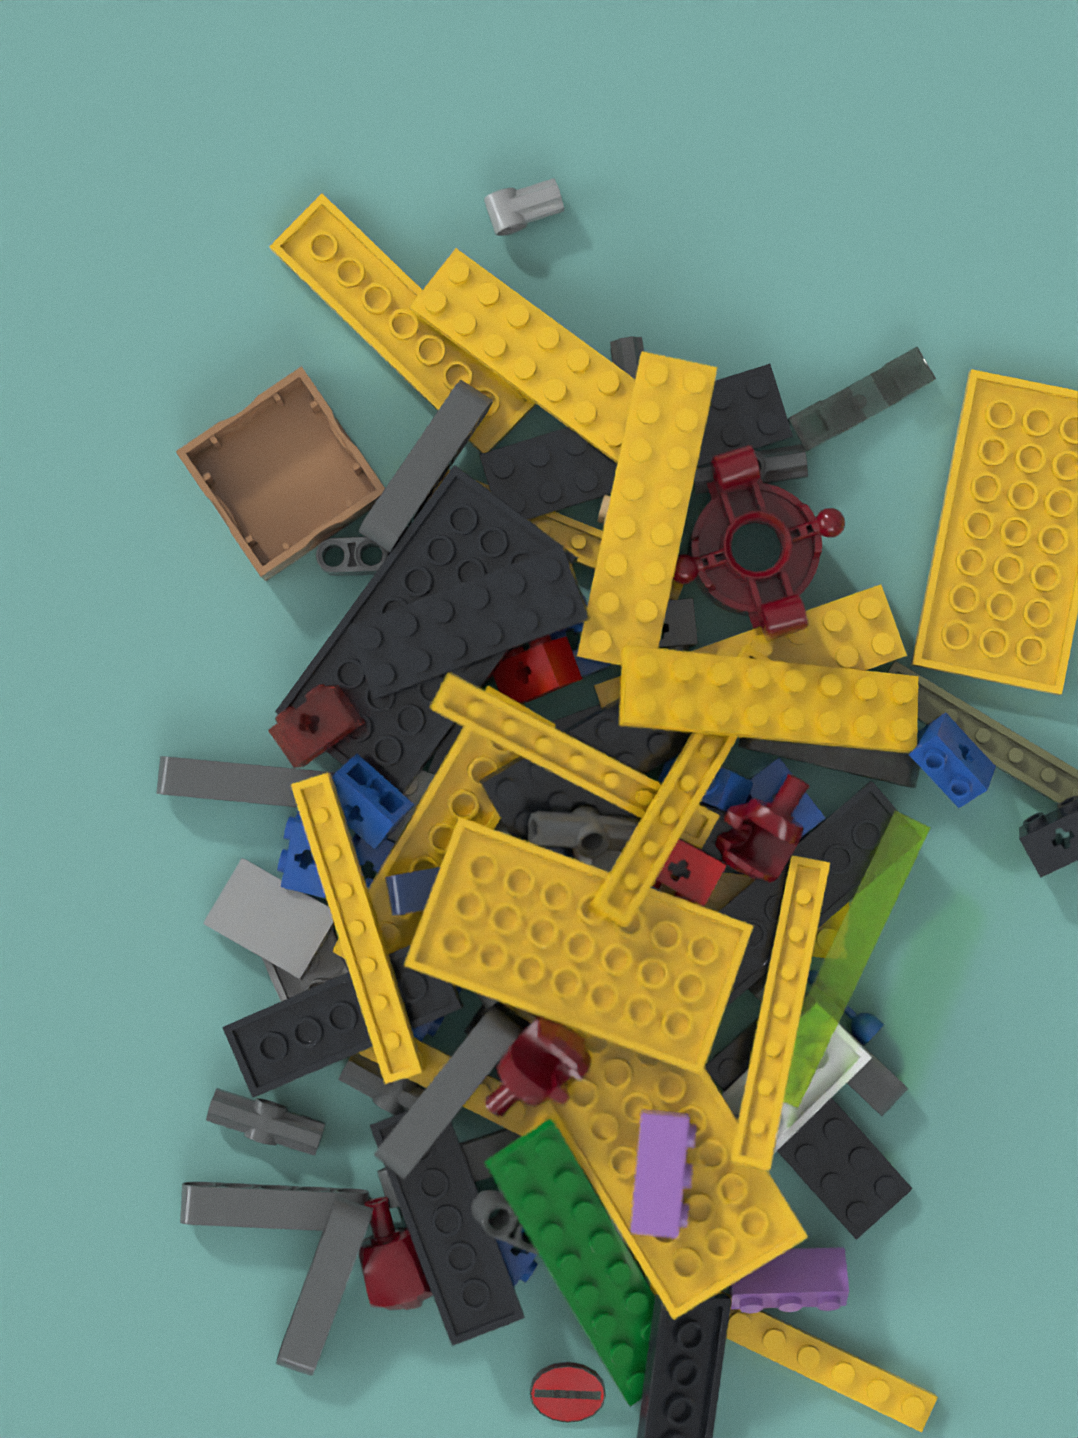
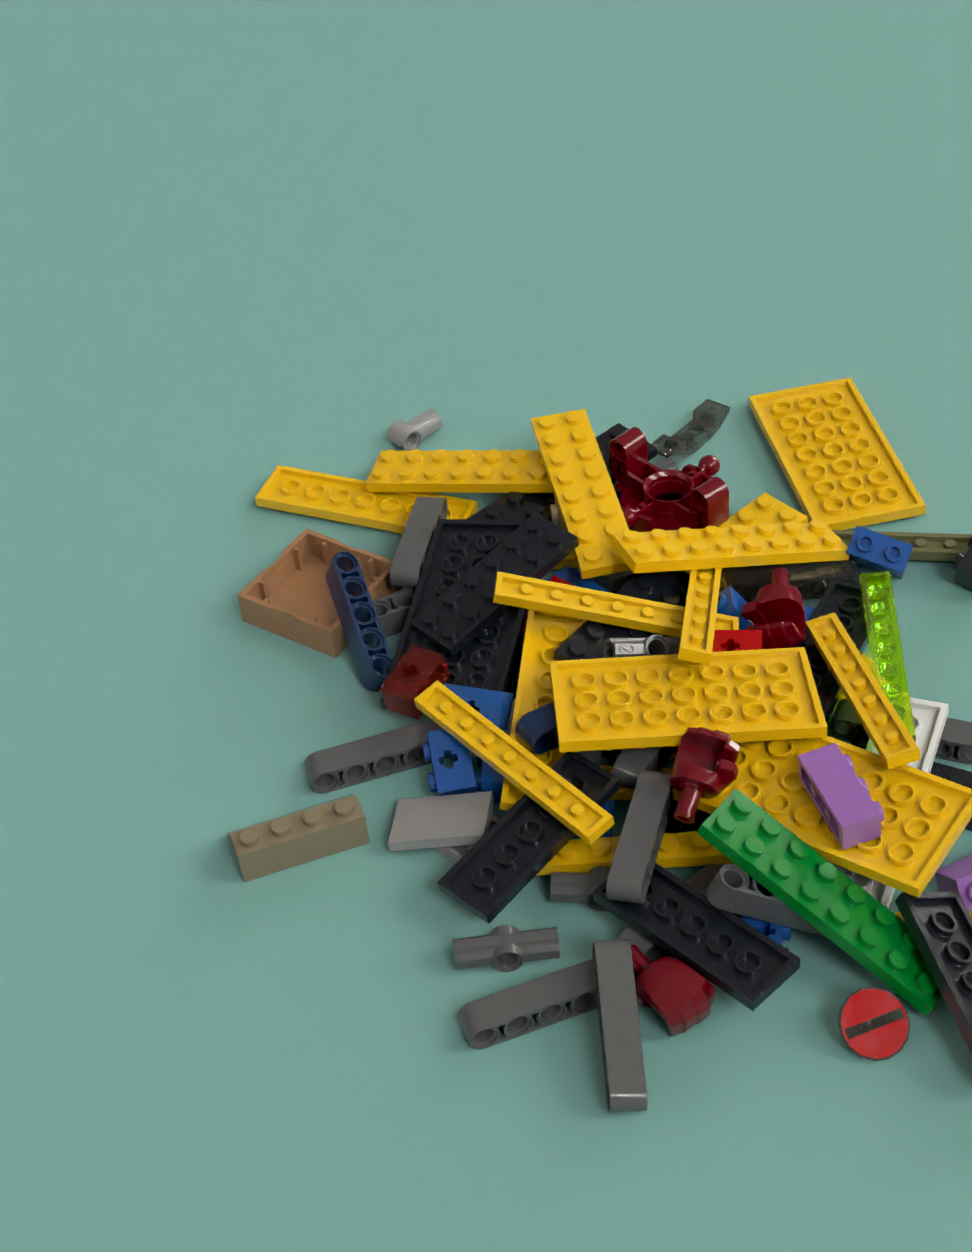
camera: 20 degrees left, 45 degrees down
(116, 851) = (299, 837): none -> dark tan slope
(289, 565) = (346, 578): none -> dark blue beam

